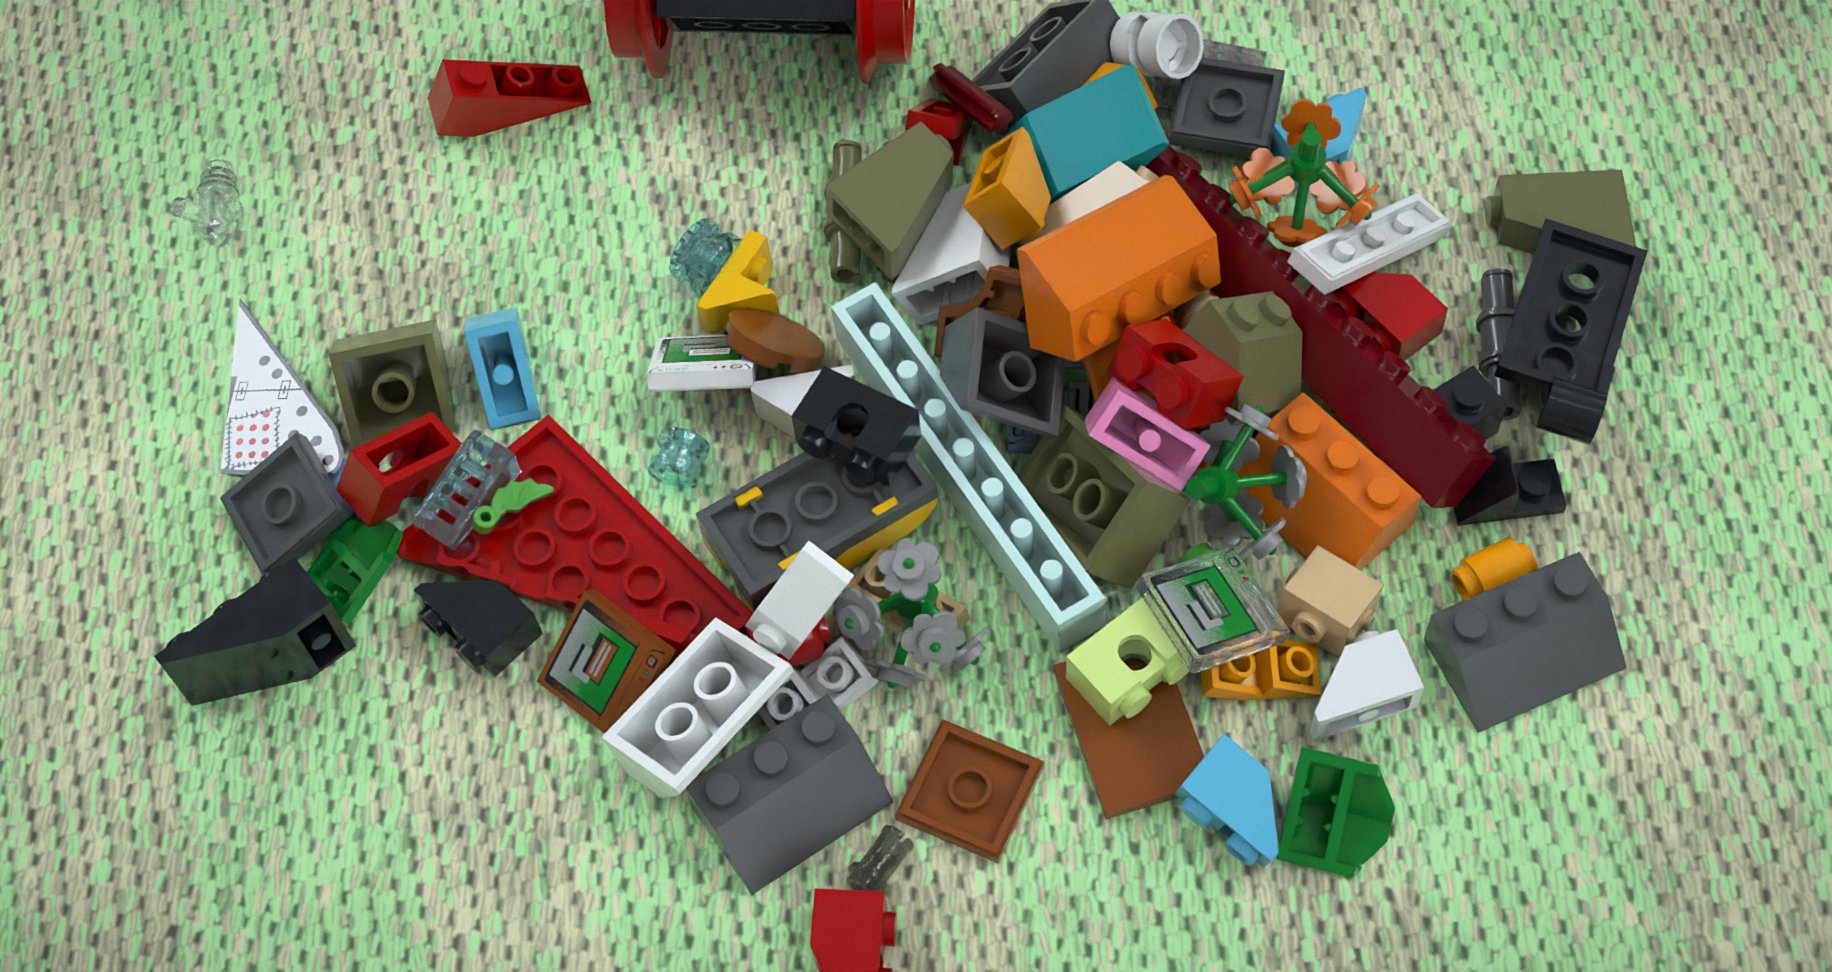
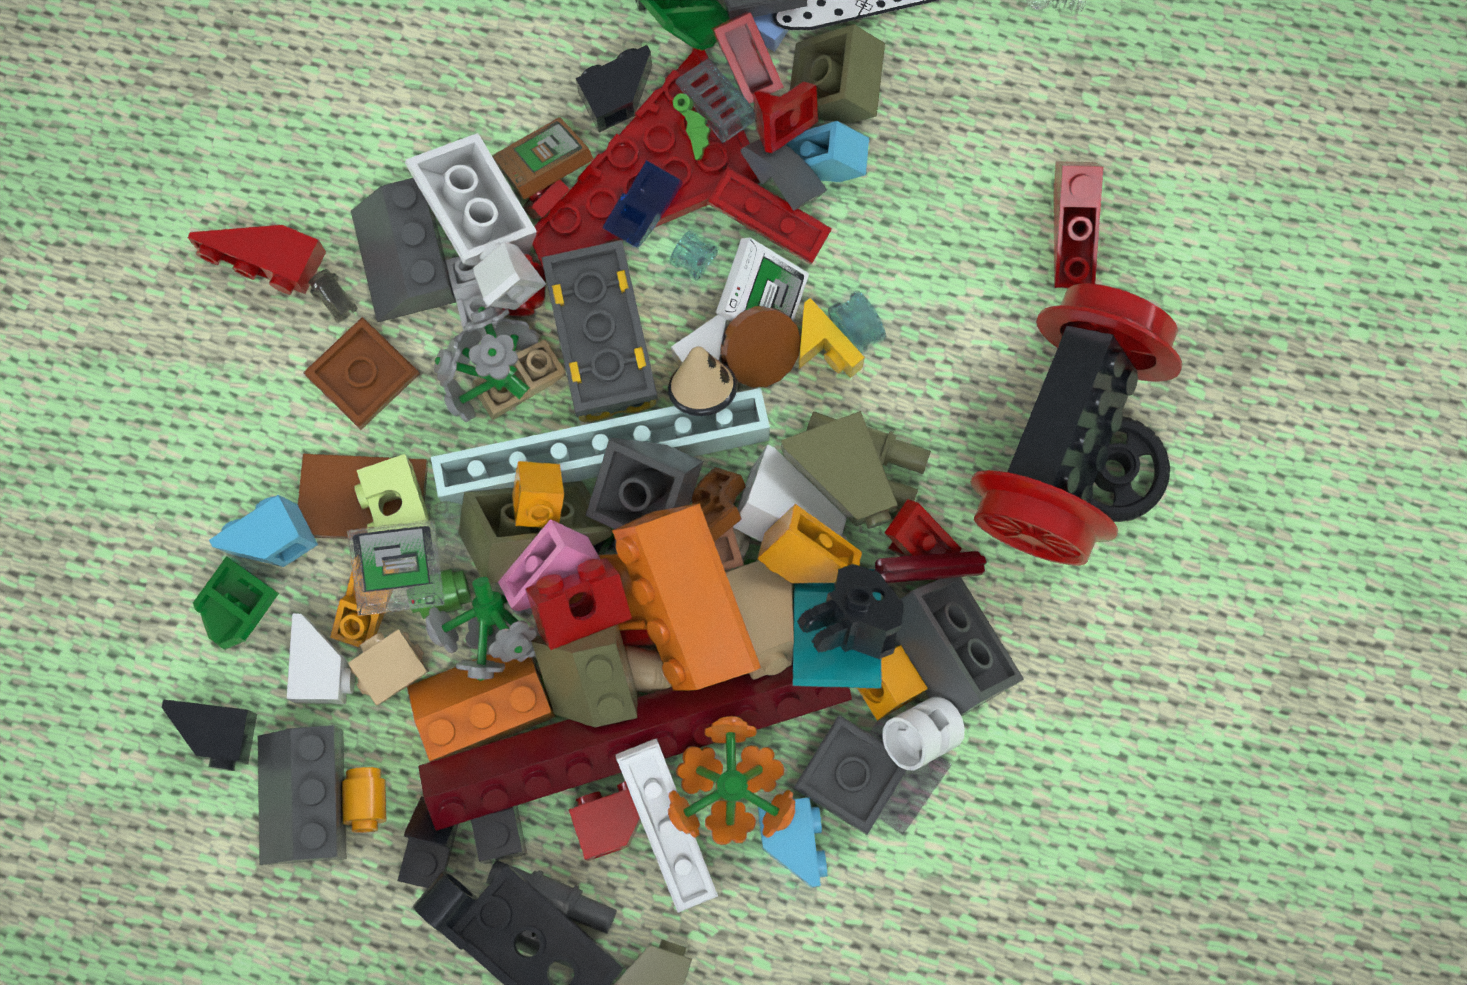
camera: 105 degrees right, 15 degrees up
(474, 402) = (786, 116): none -> red slope
(535, 388) = (788, 170): none -> dark grey slope
(600, 395) = (769, 216): none -> red tile
(634, 526) = (643, 205): none -> clear blue slope
(843, 404) = (627, 385): black brick -> none
(857, 352) = (702, 384): none -> tan hat
(1059, 478) = (537, 493): none -> light orange brick
(1068, 95) = (855, 616): none -> black hinge
(1499, 769) = (214, 732): none -> black slope

